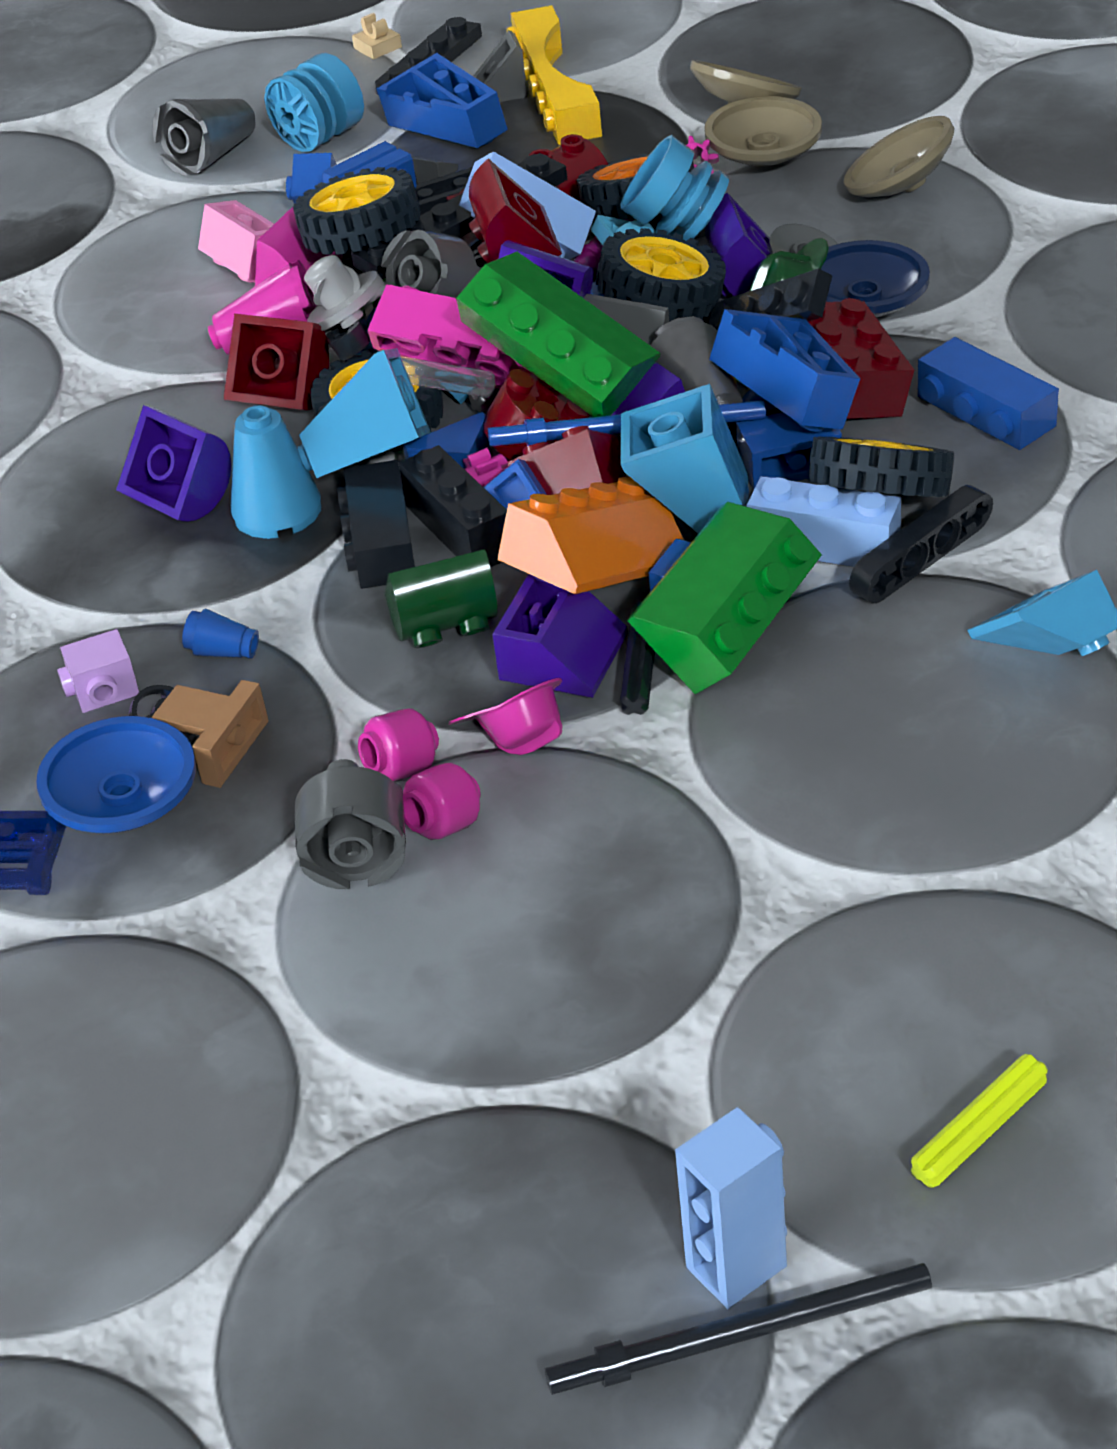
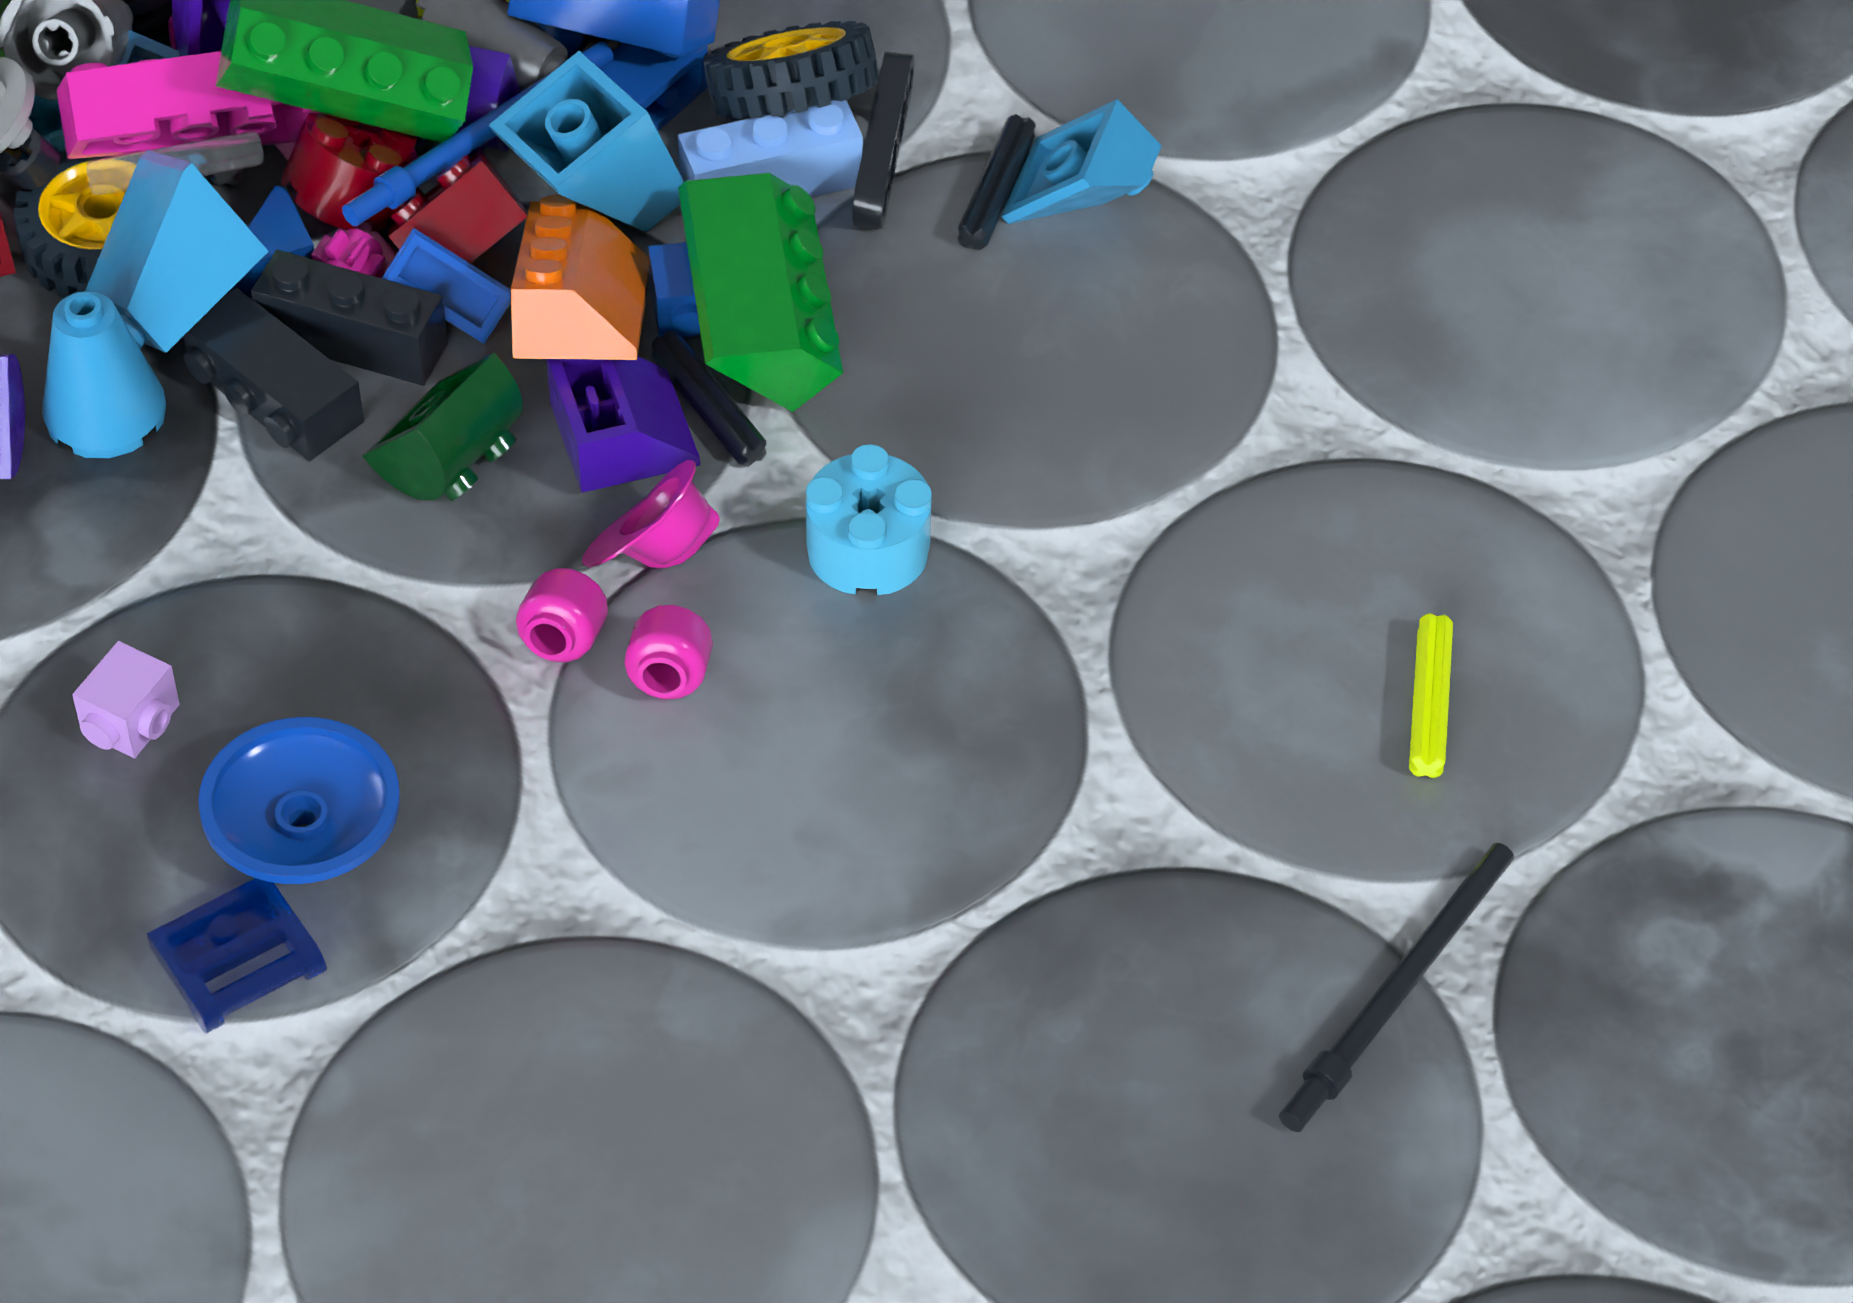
camera: 45 degrees left, 10 degrees up
(218, 636) = (219, 593): blue cone -> none
(224, 723) = (313, 689): medium nougat piece -> none
(349, 826) = (621, 723): dark grey brick -> none
(655, 780) = (868, 522): none -> medium azure brick
(733, 1206) = (1350, 878): light blue brick -> none
(982, 604) = (996, 182): none -> black axle

